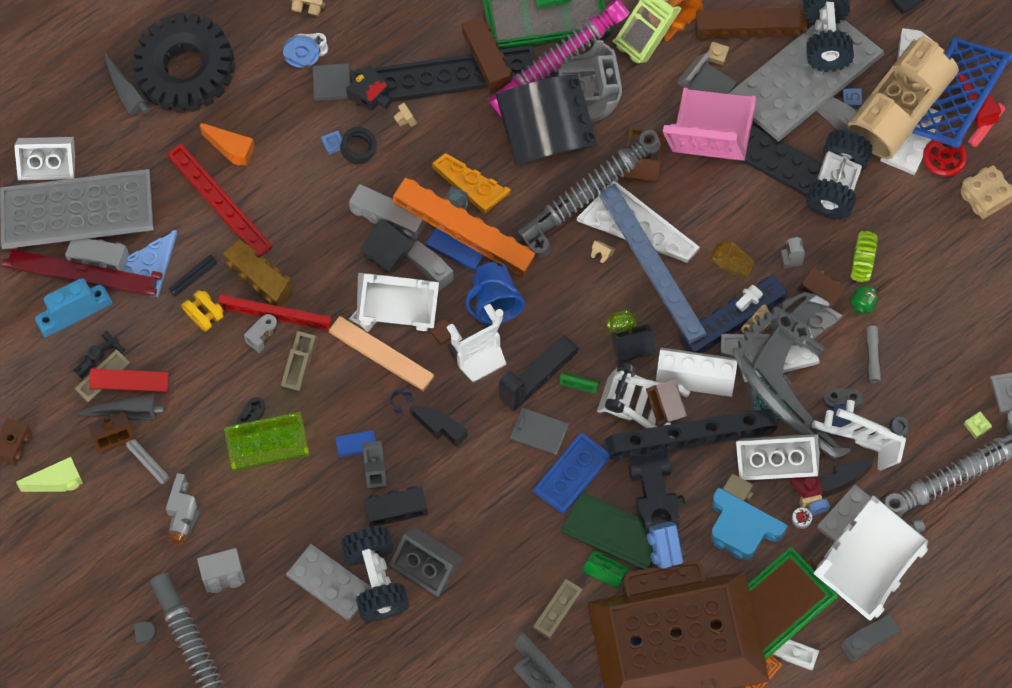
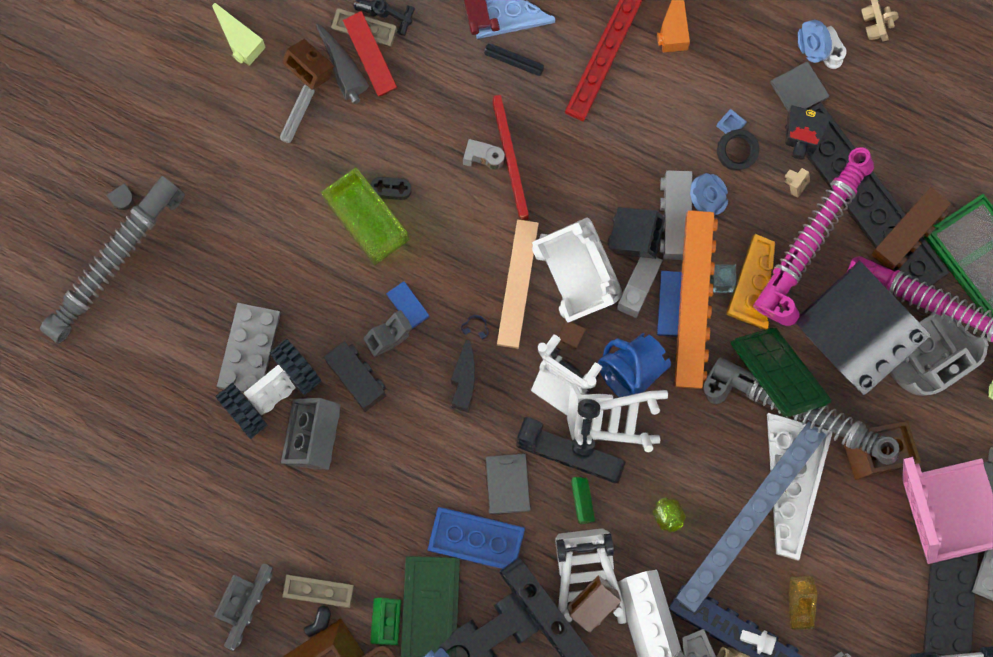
camera: 65 degrees right, 10 degrees up
(182, 511) = (260, 172): light grey plate -> none
(213, 311) = (484, 98): yellow brick -> none
(221, 571) = (210, 240): light grey brick -> none
(258, 274) = (545, 120): pearl gold wedge -> none
(299, 360) = (470, 206): dark tan slope -> none
(382, 181) = (709, 193): none -> medium blue tile
(459, 127) = (809, 239): none -> dark pink piece
(508, 342) = (587, 407): none -> white hand
(551, 190) = (780, 372): none -> dark green piece
(584, 617) = (321, 621): none -> black arm
(600, 247) = (746, 456): tan tile -> none
(636, 344) = (649, 544): black piece -> none

